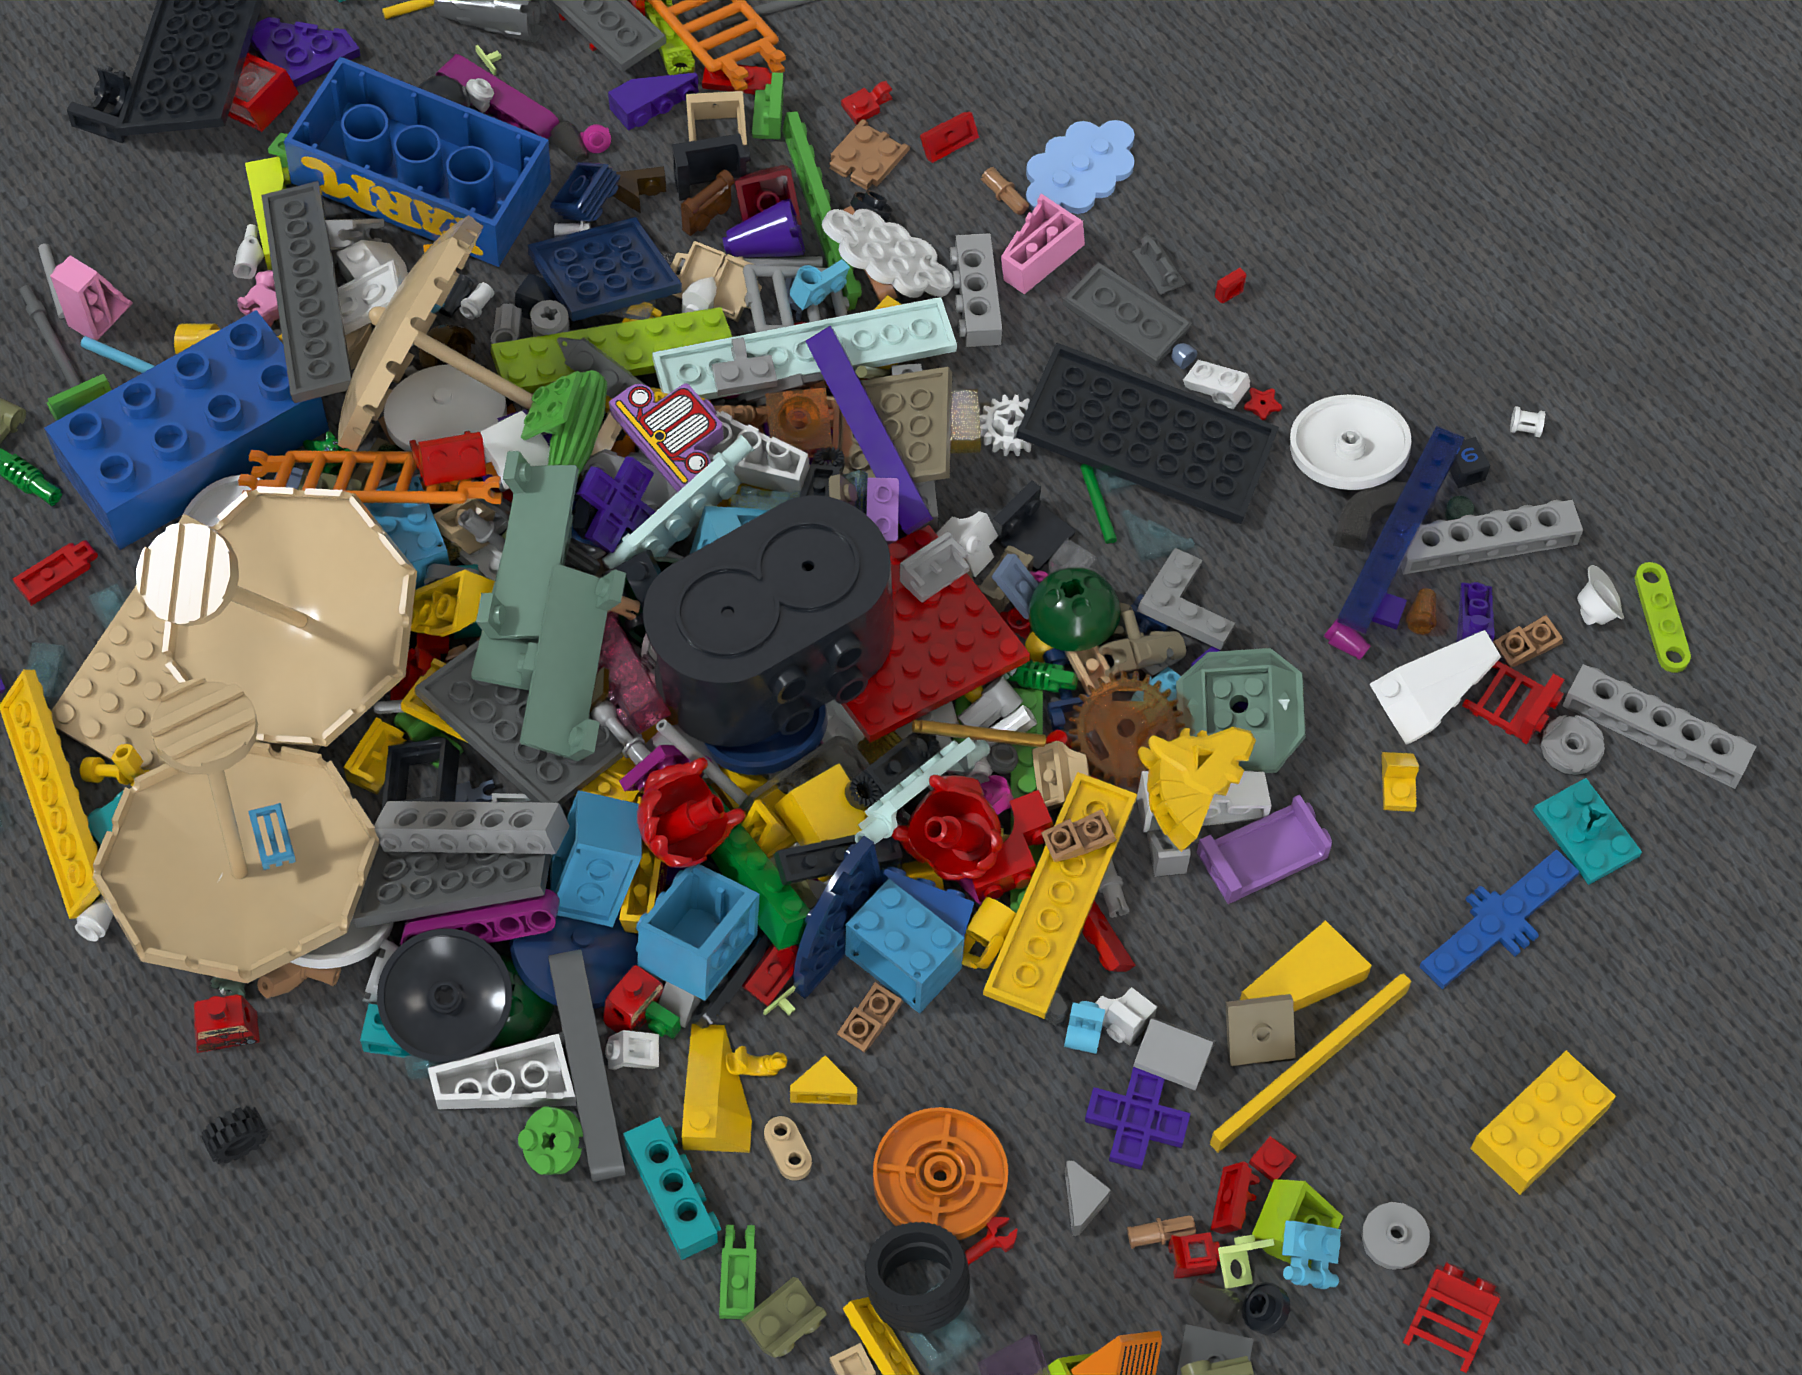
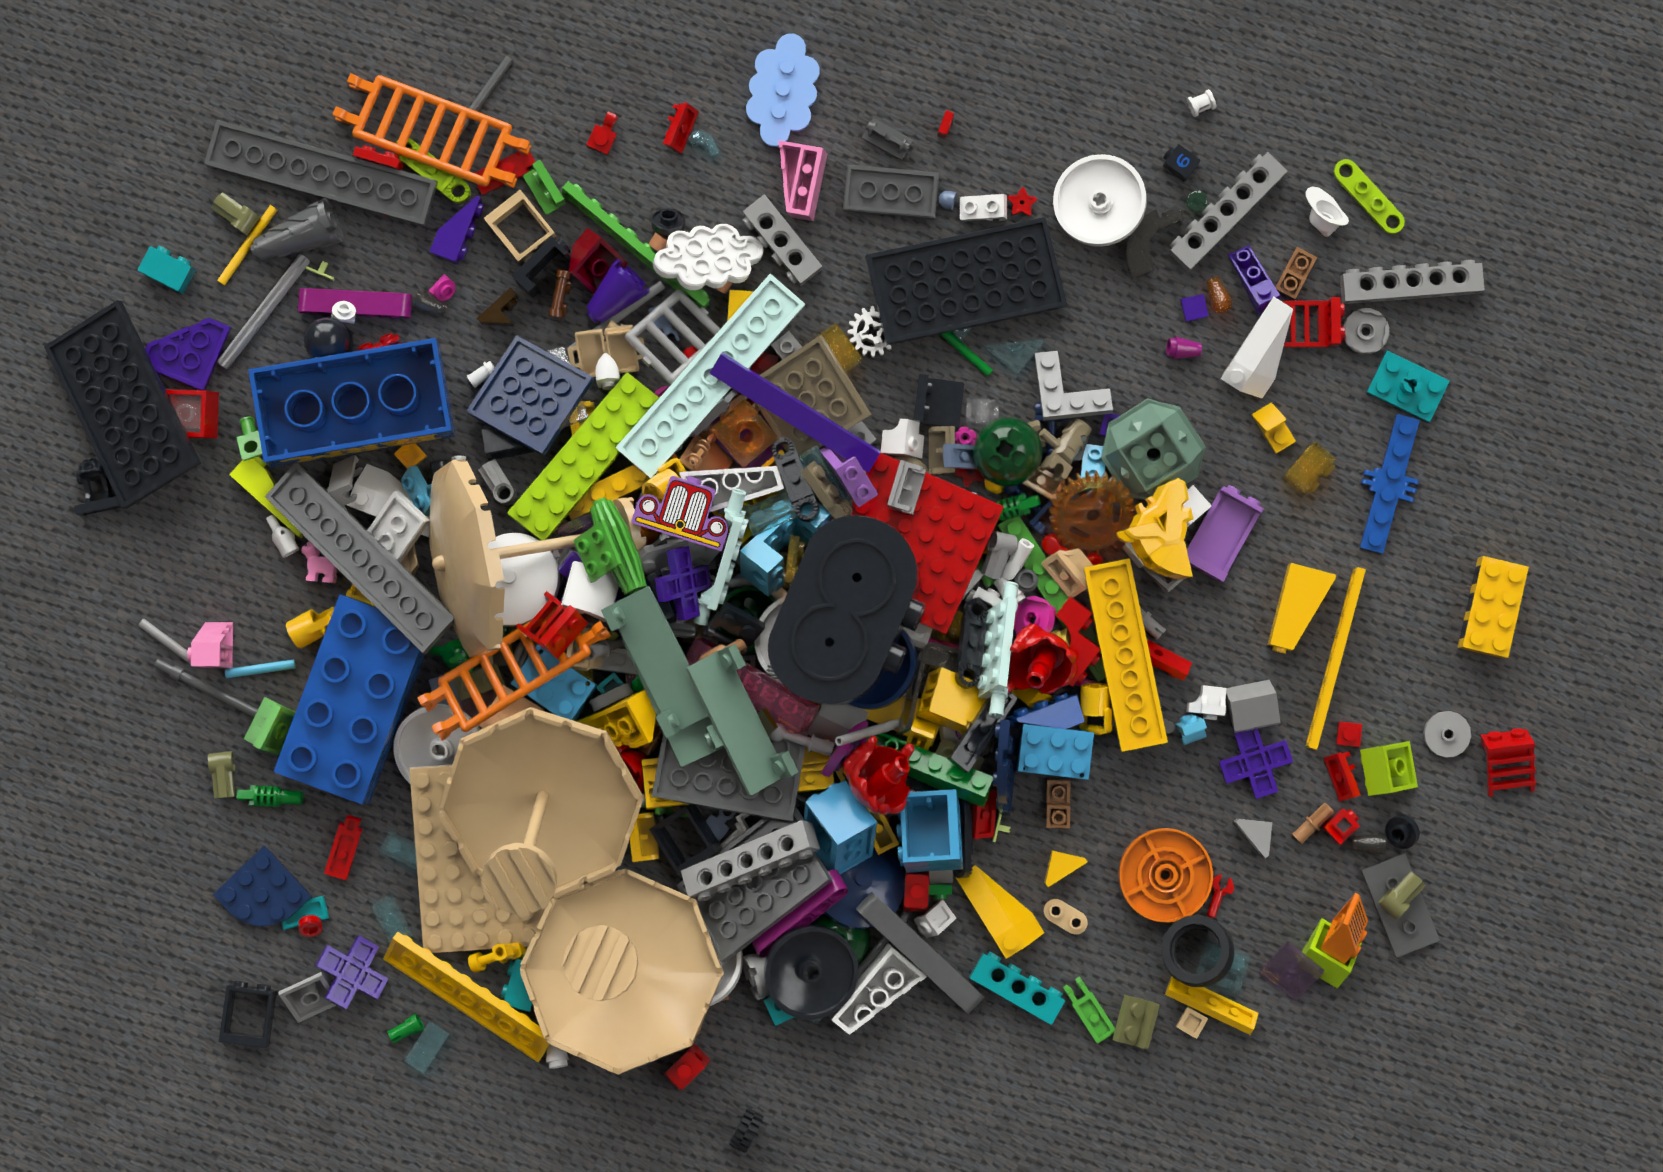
camera: 30 degrees left, 25 degrees up
(277, 857) = (652, 959): dark azure tile -> none
(422, 53) = (263, 311): none -> light grey axle
(536, 1135) = (931, 1020): bright green plate -> none
(549, 318) = (531, 457): light grey piece -> none
(584, 356) = (597, 485): dark grey plate -> none
(586, 191) = (473, 343): dark blue brick -> none
(743, 373) = (686, 423): light grey plate -> none
(747, 1064) = (1008, 881): yellow piece -> none
(813, 285) = (684, 318): medium azure plate -> none
(867, 155) = (633, 177): medium nougat plate -> none
(872, 372) = (765, 365): olive bar -> none
(961, 157) = (706, 139): none -> clear light blue arm
(978, 733) = (998, 586): pearl gold bar -> none
(1004, 190) = (746, 145): medium nougat axle -> none
(1080, 837) = (1114, 613): medium nougat slope -> none
(1239, 1252) = (1371, 806): yellowish green bracket -> none
(1260, 1029) = (1295, 660): dark tan plate -> none
(1313, 1243) = (1406, 778): medium azure plate -> none
(1400, 530) = (1175, 251): clear blue plate -> none
(1413, 842) = (1309, 468): none -> clear yellow brick

